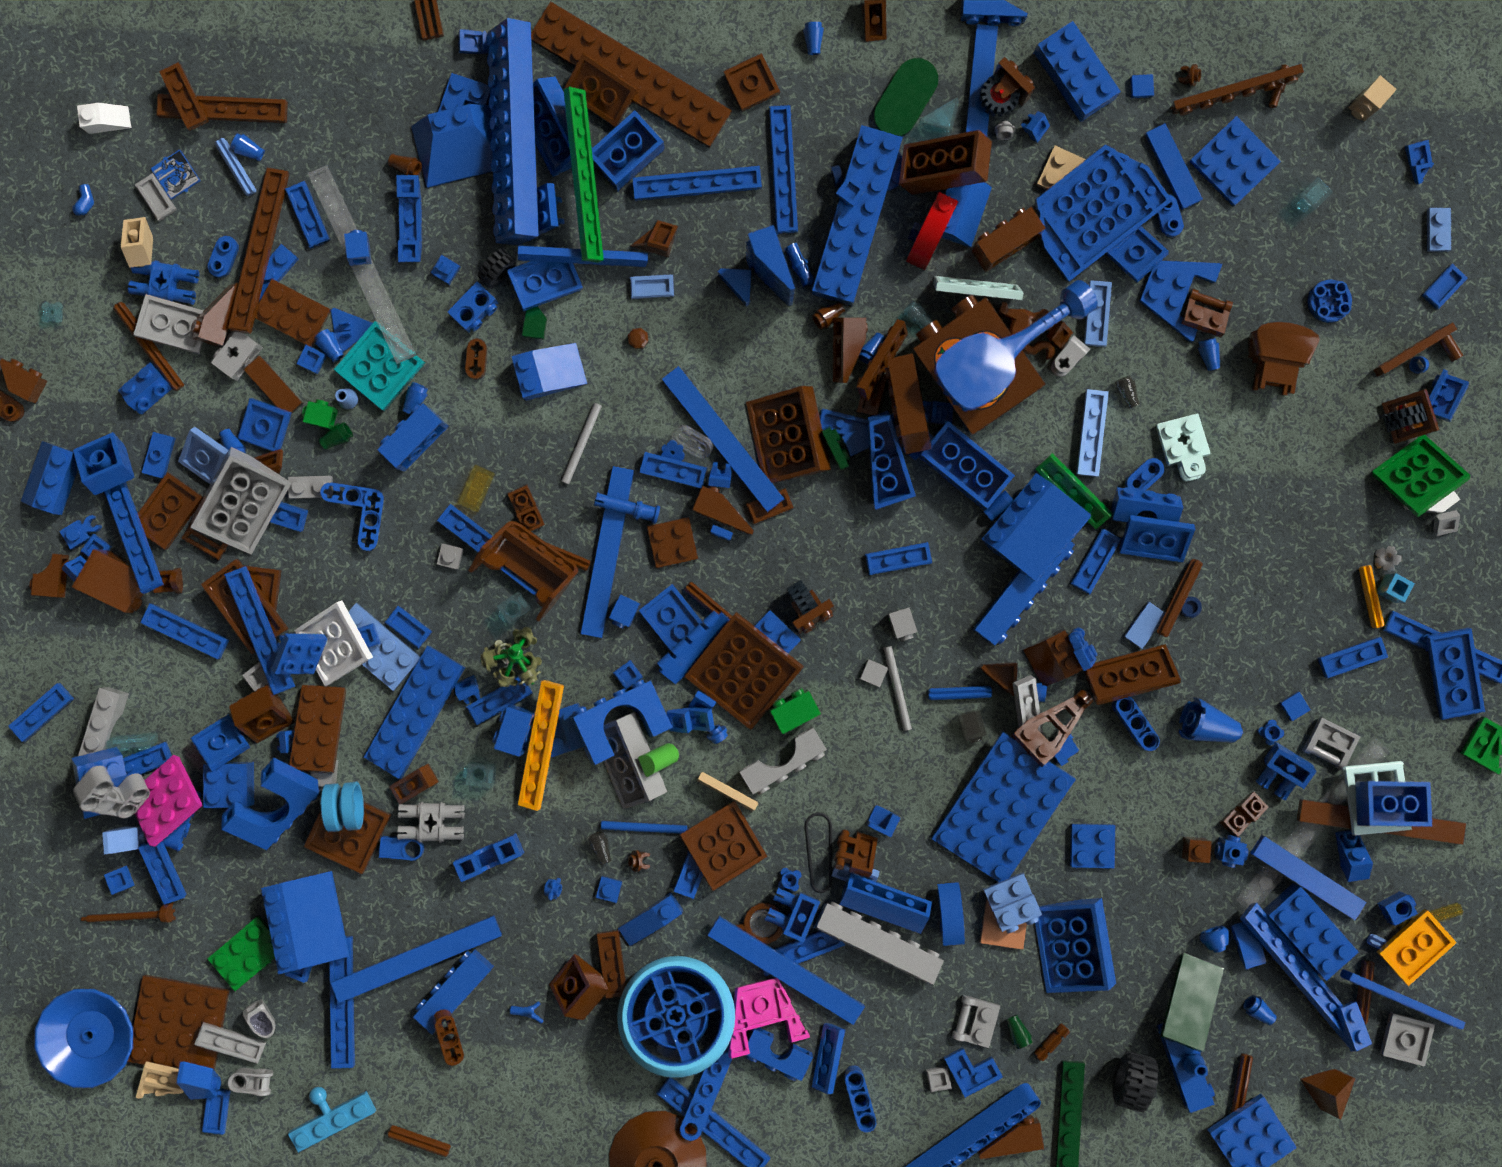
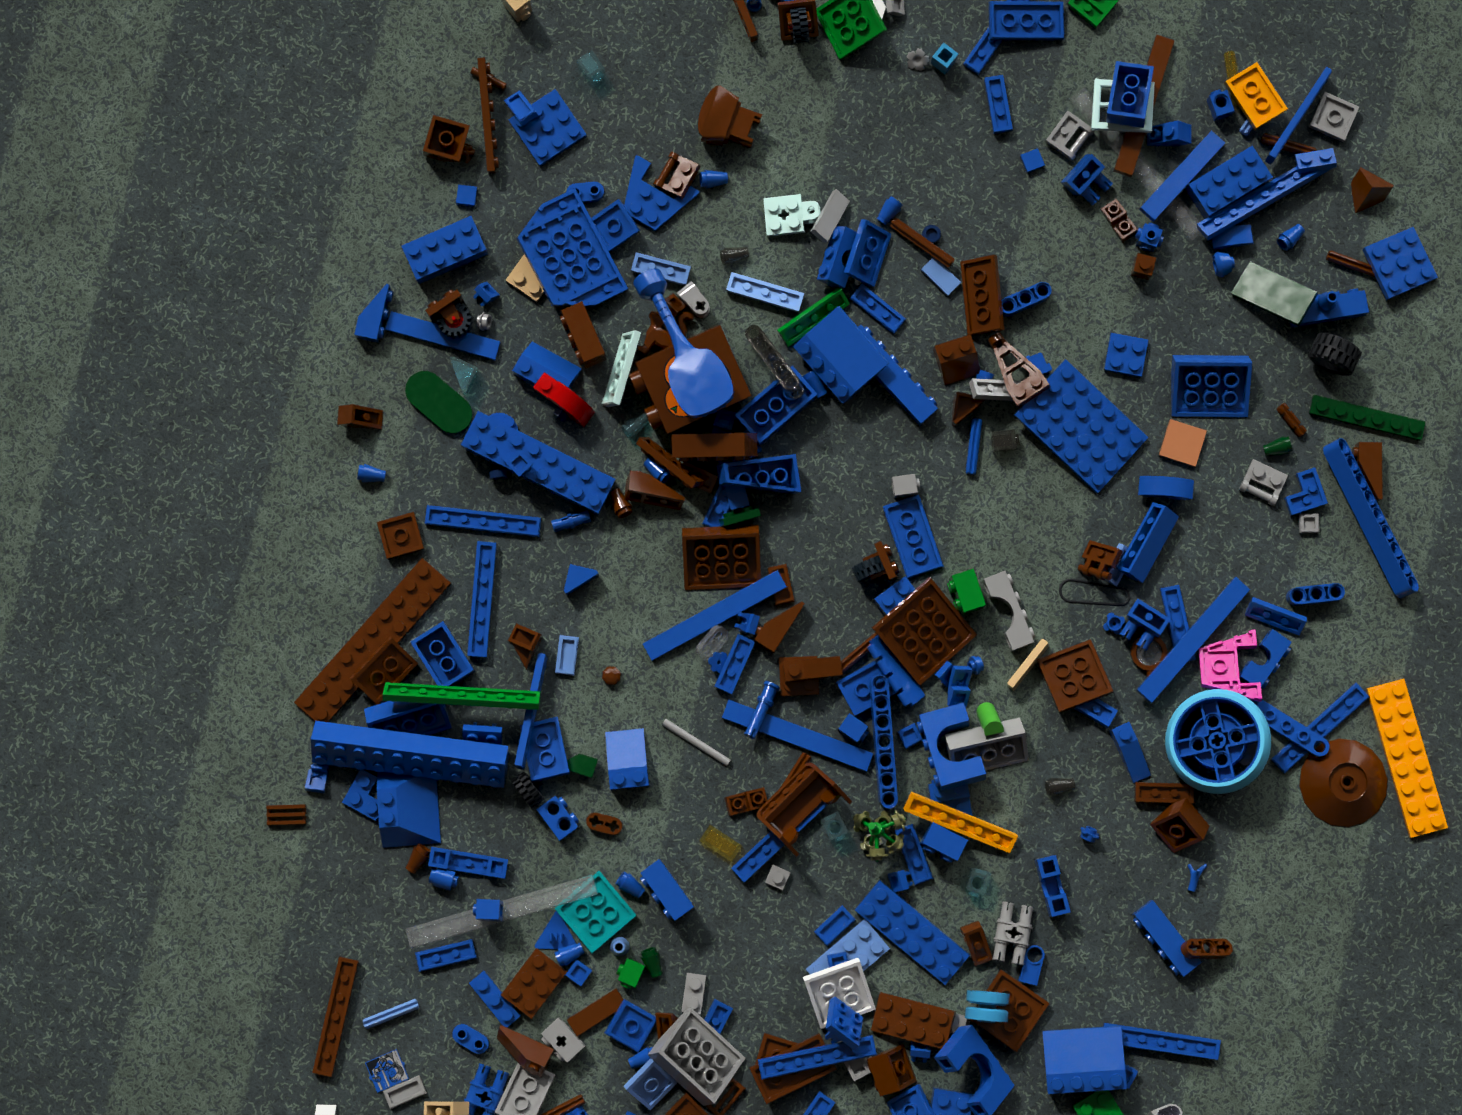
camera: 80 degrees left, 5 degrees down
(184, 96) = (321, 1047): reddish brown plate -> none
(246, 147) = (375, 999): blue cone -> none
(258, 251) = (472, 1003): reddish brown tile -> none
(331, 1120) = (1264, 1068): dark azure plate -> none
(362, 501) = (715, 947): blue beam -> none
(387, 196) = (443, 878): none -> blue brick
(416, 959) = (1132, 966): blue tile -> none
(419, 1141) = (1295, 992): reddish brown axle -> none
(445, 269) = (518, 838): blue tile -> none
(605, 650) = (879, 750): none -> blue beam
(609, 889) = (1097, 784): blue plate -> none
(635, 860) = (1076, 756): reddish brown plate -> none
(643, 827) = (1047, 745): blue bar -> none
(680, 554) = (812, 669): none -> reddish brown slope
(722, 533) = (798, 630): blue tile -> none
(769, 264) = (568, 545): blue slope -> none
(847, 642) = (912, 536): none -> blue tile
(874, 673) = (944, 518): light grey tile -> none
(878, 943) = (1182, 554): light grey brick -> none
(883, 821) = (1075, 532): blue panel -> none
(897, 688) = (960, 500): light grey bar -> none
(898, 558) = (846, 479): blue tile -> none
(945, 162) = (508, 377): reddish brown brick -> none
(1012, 903) = (1165, 432): medium blue plate -> none
(1014, 454) = (774, 362): none -> clear smoke beam
(1083, 651) = (956, 332): blue plate -> none
(1143, 476) = (810, 254): blue plate -> none
(1173, 166) = (542, 181): blue tile -> none
(1191, 489) = (830, 216): none -> light grey tile
(1201, 47) = (445, 139): none -> reddish brown slope
(1208, 723) = (1035, 237): blue cone -> none
(1210, 556) = (889, 210): none -> blue cone
(1252, 126) = (521, 108): none -> blue tile
(1271, 738) = (1055, 181): blue plate -> none
(1330, 300) = (684, 68): blue tile -> none
(1371, 596) = (945, 79): light orange axle -> none

